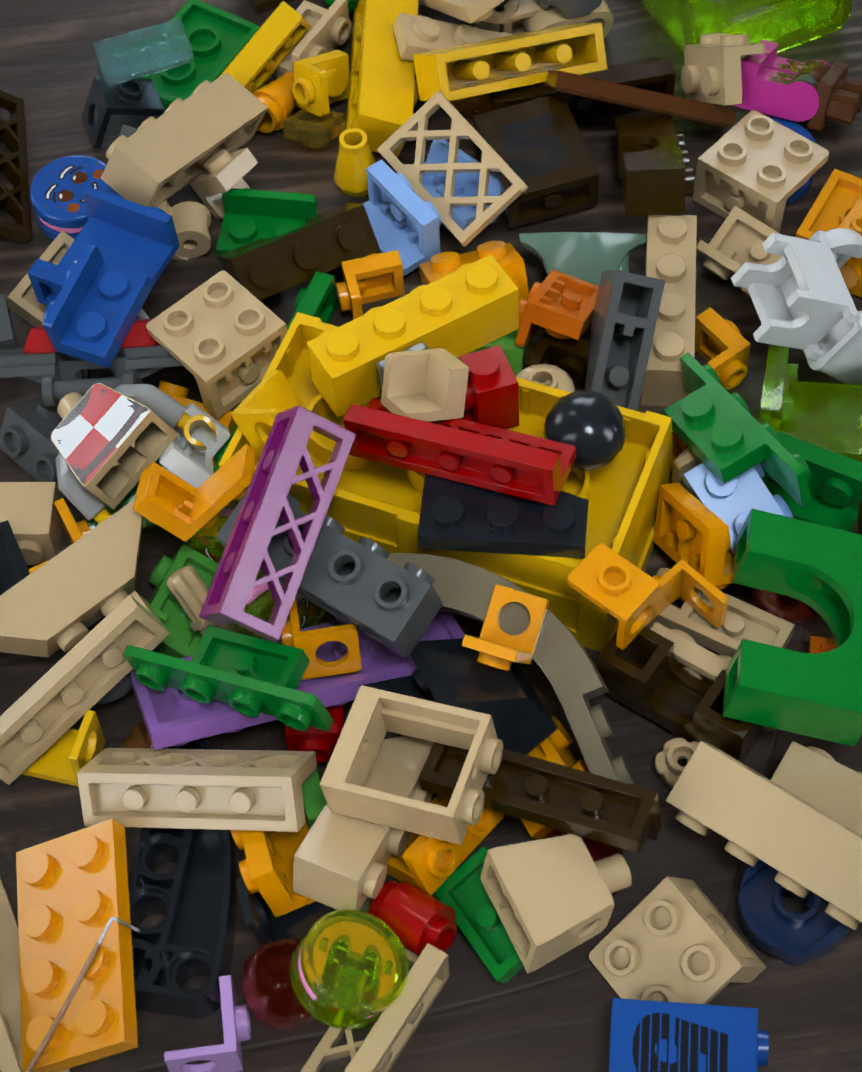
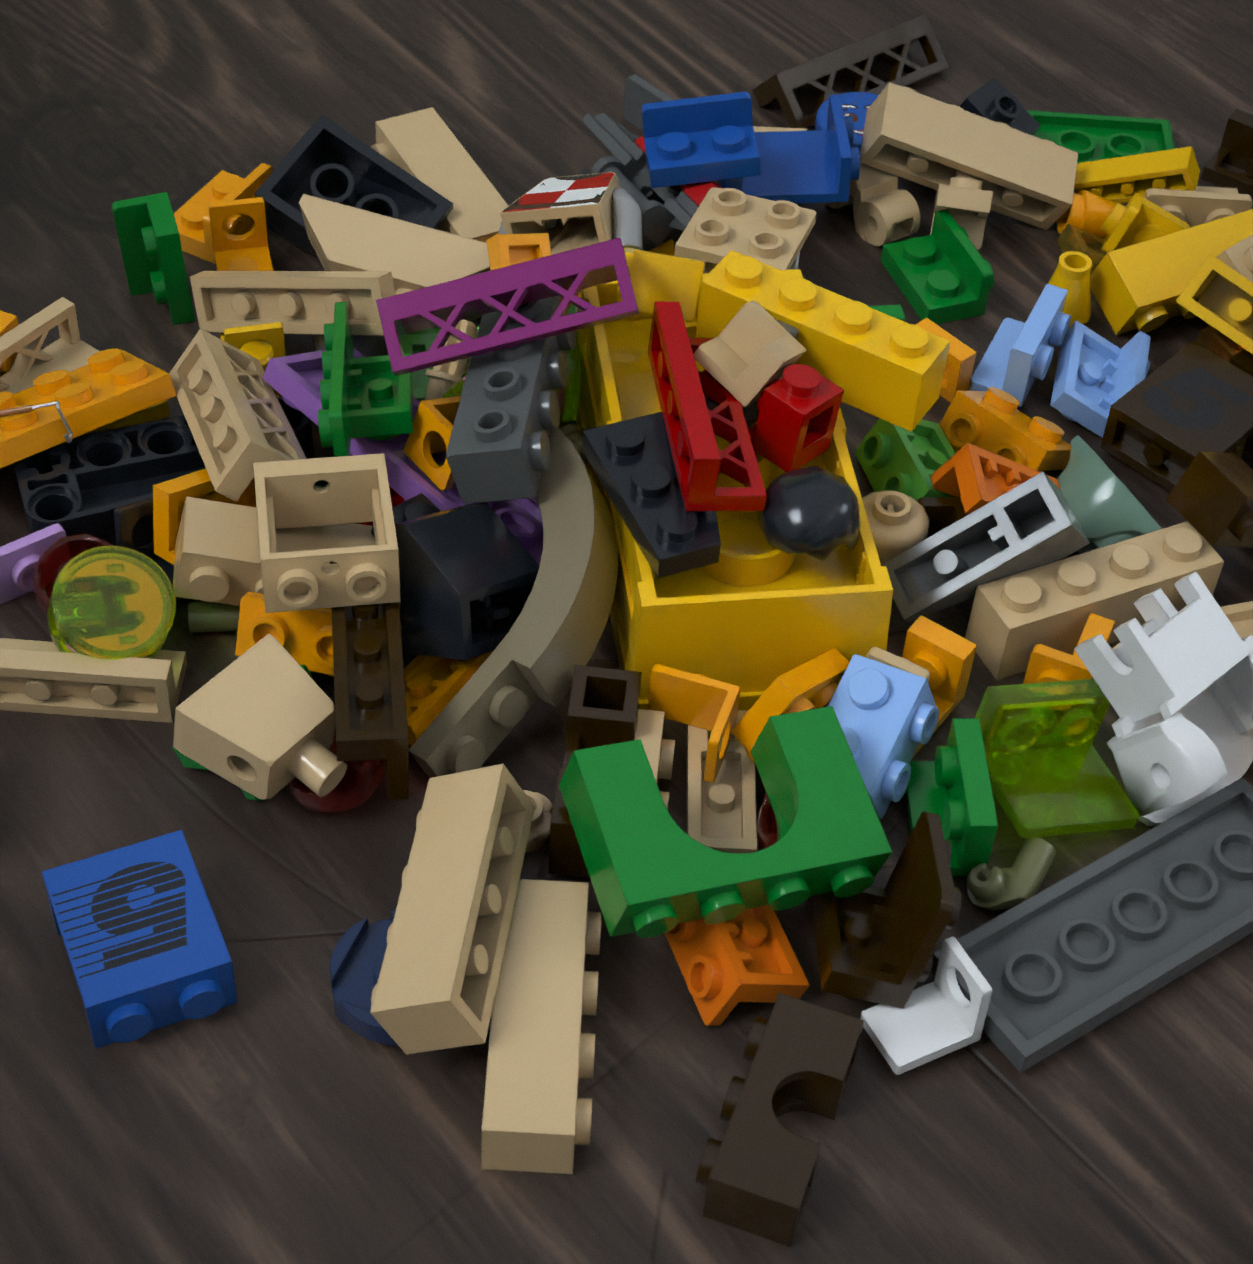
camera: 55 degrees right, 10 degrees down
(142, 52) = (1052, 95): clear light blue bracket -> none
(294, 257) = (922, 289): dark brown arch -> none
(415, 916) = (203, 649): red brick -> none
(489, 163) = (1087, 392): tan window -> none
(497, 646) = (520, 565): light orange bracket -> none
(617, 589) = (638, 624): light orange bracket -> none
(674, 948) = (294, 886): tan bracket -> none
(727, 435) = (933, 665): green bracket -> none

